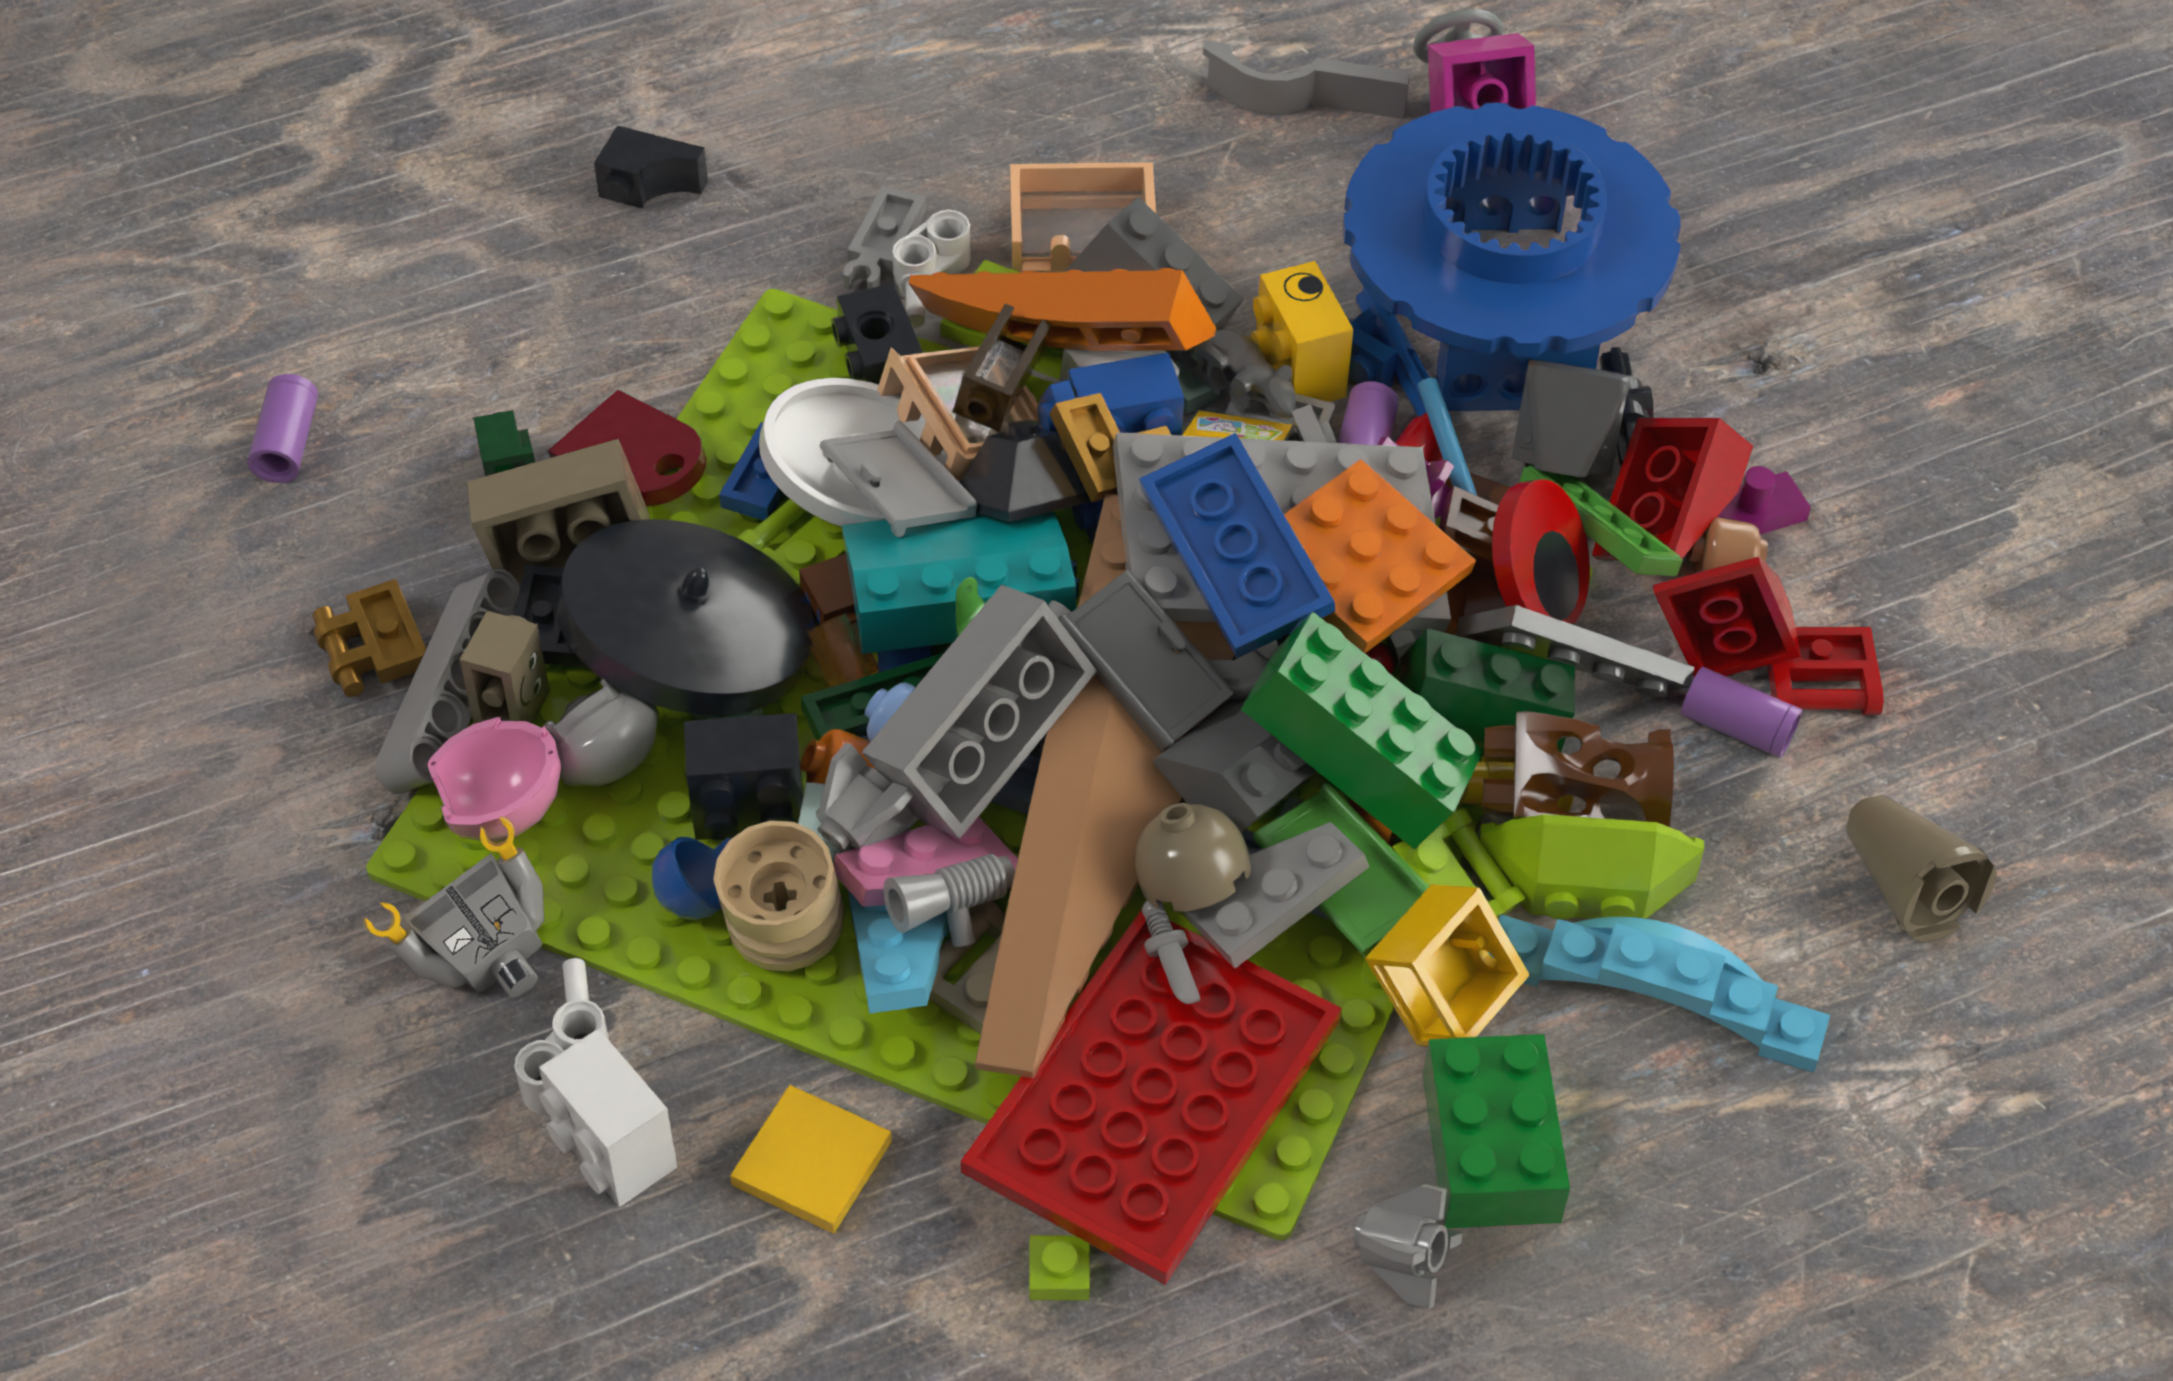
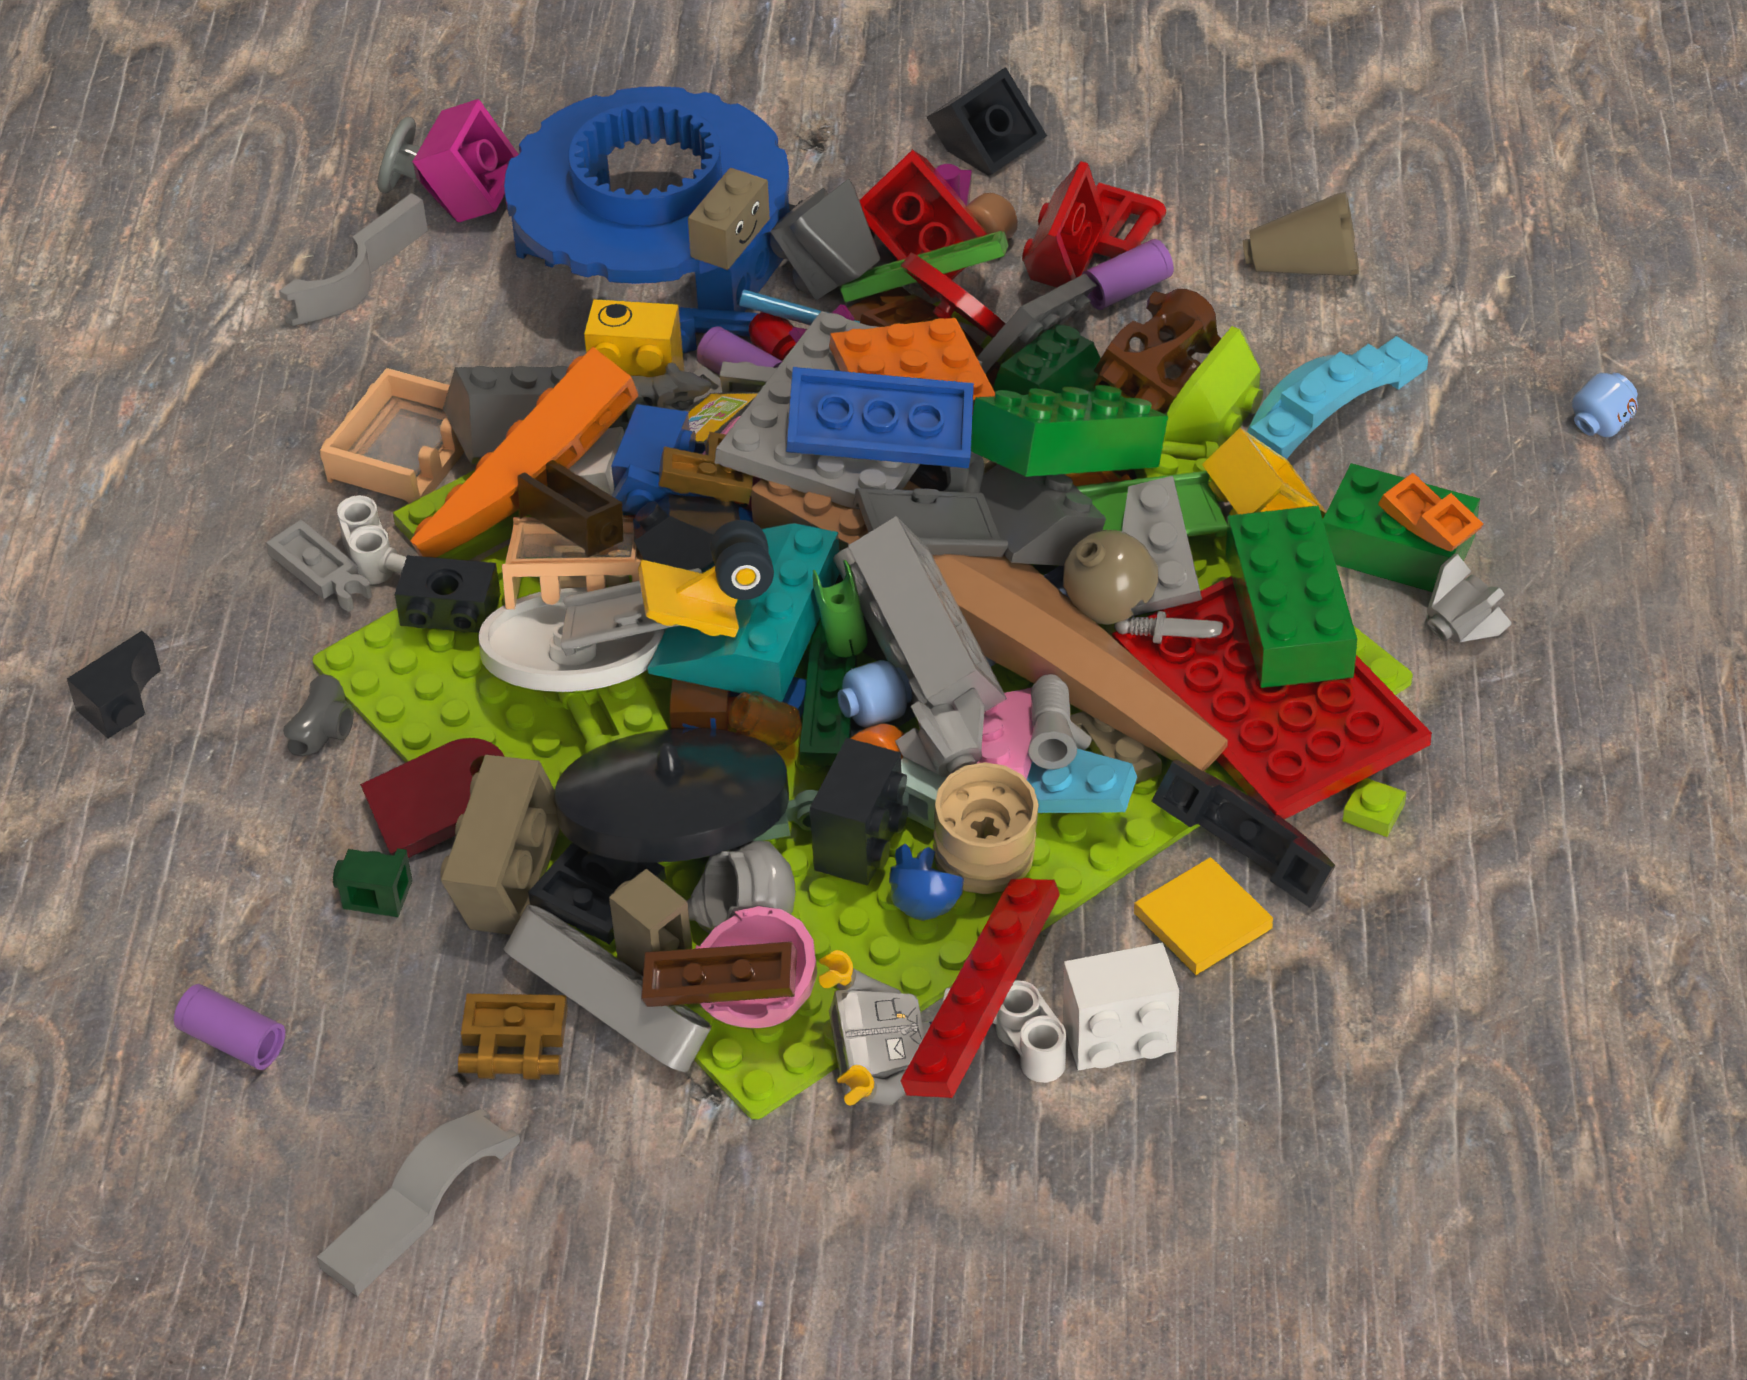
camera: 60 degrees left, 5 degrees down
(129, 648) = (411, 1202): none -> light grey piece
(452, 746) = (719, 974): none -> reddish brown plate
(574, 981) = (980, 988): none -> red plate
(691, 325) = (320, 718): none -> dark grey piece
(750, 486) = (532, 716): blue plate -> none
(904, 503) = (709, 598): none -> yellow plate
(947, 1081) = (1248, 827): none -> black slope
(1270, 1045) = (1290, 597): none -> green brick
(1469, 302) = (728, 218): none -> dark tan brick
(1488, 1137) = (1425, 514): none -> orange slope
(1856, 1279) = (1605, 404): none -> light blue head
(1893, 492) = (988, 124): none -> black slope

